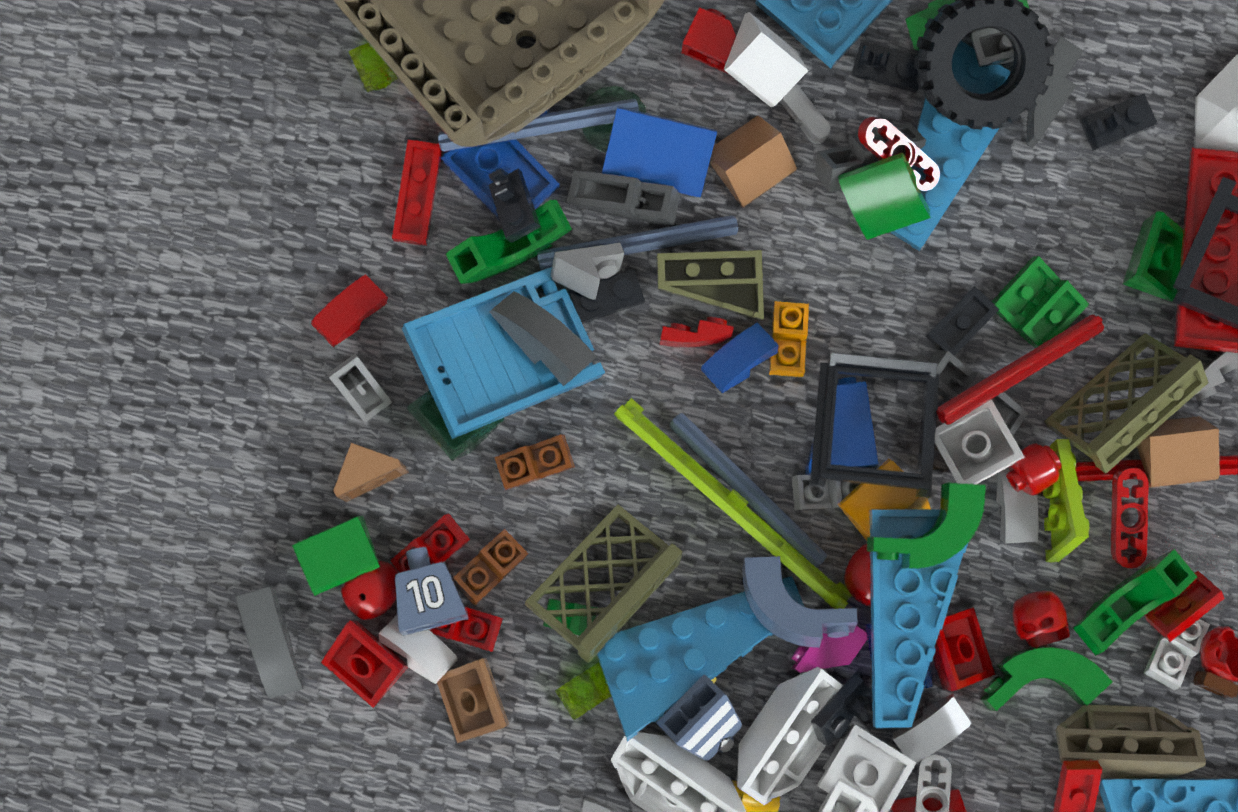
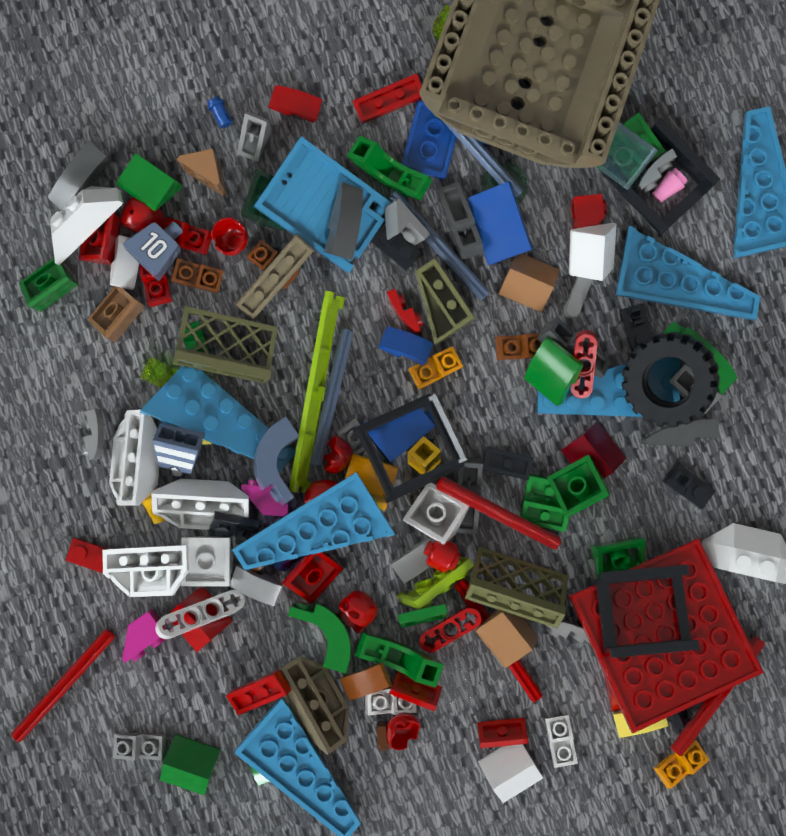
camera: 60 degrees right, 5 degrees up
(300, 411) = (219, 111): none -> blue pin
(331, 666) = (81, 218): none -> white wedge
(380, 766) = (47, 285): none -> green slope
(467, 493) = (229, 236): none -> red hair
(513, 204) = (414, 157): black plate -> none
(555, 467) = (275, 276): none -> dark tan tile
(823, 222) = (516, 346): none -> dark orange slope
(830, 525) = (339, 456): none -> red hair
(895, 418) = (424, 456): none -> yellow brick
(956, 524) = (363, 524): green arch -> none
(1013, 212) = (600, 448): none -> dark red slope
(1046, 251) = (578, 486): none -> green slope
(1096, 539) = (422, 616): none -> green tile
(1136, 663) = (365, 681): none -> dark orange slope

